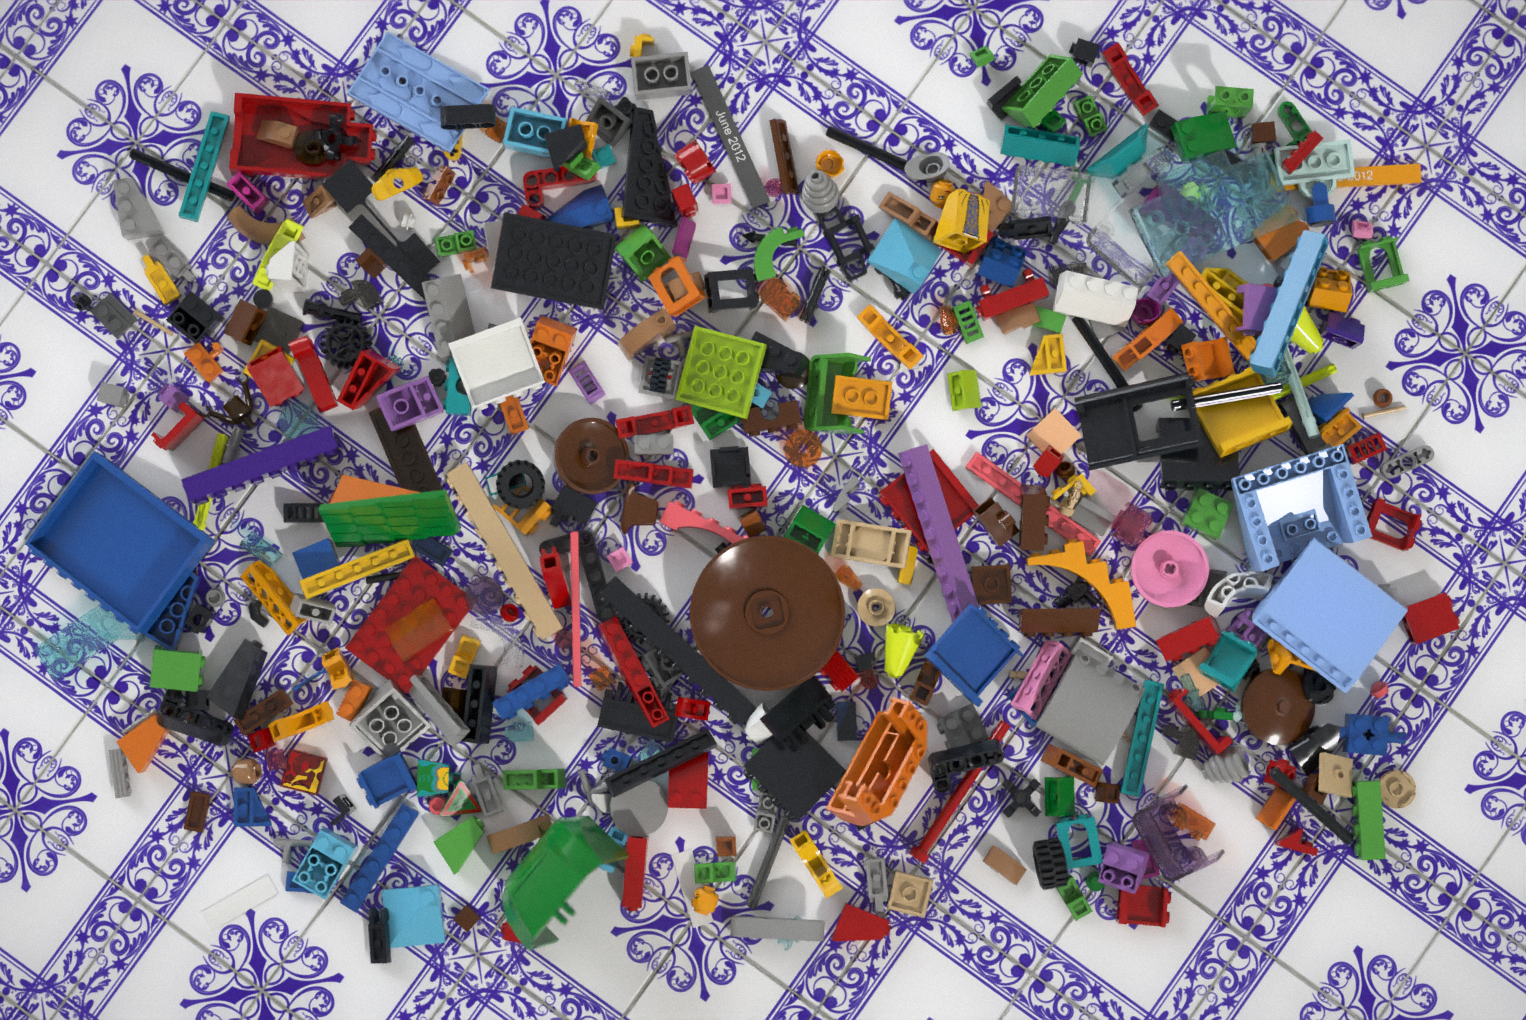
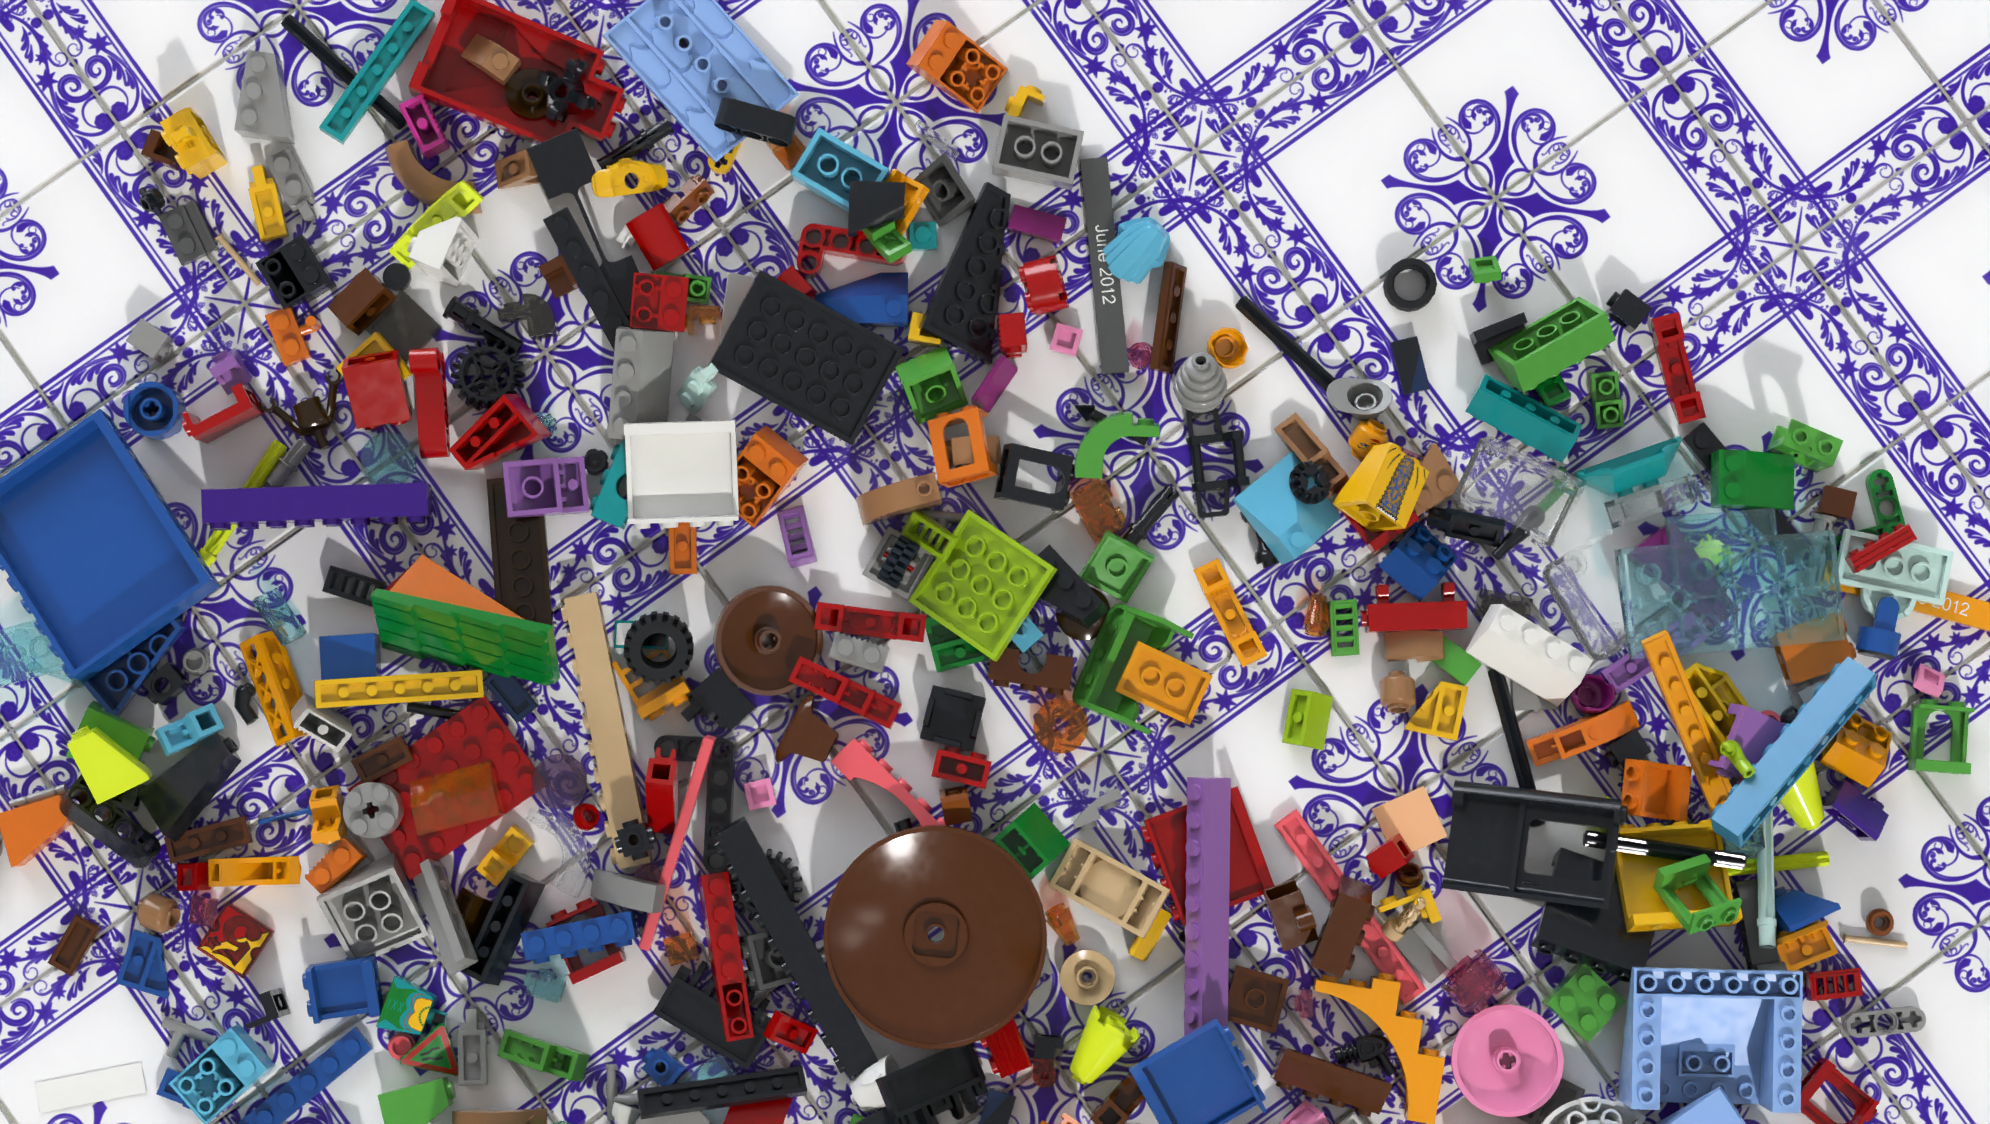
camera: 20 degrees right, 0 degrees up
(78, 266) = (158, 151): none -> reddish brown panel
(100, 256) = (193, 143): none -> yellow hinge
(122, 435) = (143, 400): none -> blue brick
(179, 682) = (105, 764): none -> neon yellow slope
(227, 643) = (190, 730): none -> medium azure brick
(356, 650) = (362, 798): none -> light grey brick
(361, 619) = (382, 758): none -> reddish brown panel
(428, 214) = (657, 236): none -> red brick
(443, 257) = (659, 302): none -> red plate
(488, 305) = (698, 388): none -> light aqua hinge
(554, 618) = (646, 839): none -> black brick
(554, 651) = (628, 891): none -> light grey slope
(588, 36) = (956, 65): none -> orange slope
(625, 103) = (974, 171): black plate -> none
(661, 350) = (912, 526): none -> lime slope
(676, 124) = (1037, 224): none -> magenta slope
(748, 118) = (1137, 249): none -> medium azure hair
(805, 331) = (1116, 566): none -> bright green tile
(907, 236) = (1298, 482): none -> black gear
(940, 69) = (1421, 267): none -> black tyre
(953, 136) = (1409, 365): none -> black tile
(1017, 352) = (1397, 692): none -> medium nougat head
(1024, 576) = (1304, 1003): none -> clear pink plate
(1249, 315) = (1734, 753): none -> lime arm
(1249, 404) = (1695, 872): none -> bright green panel

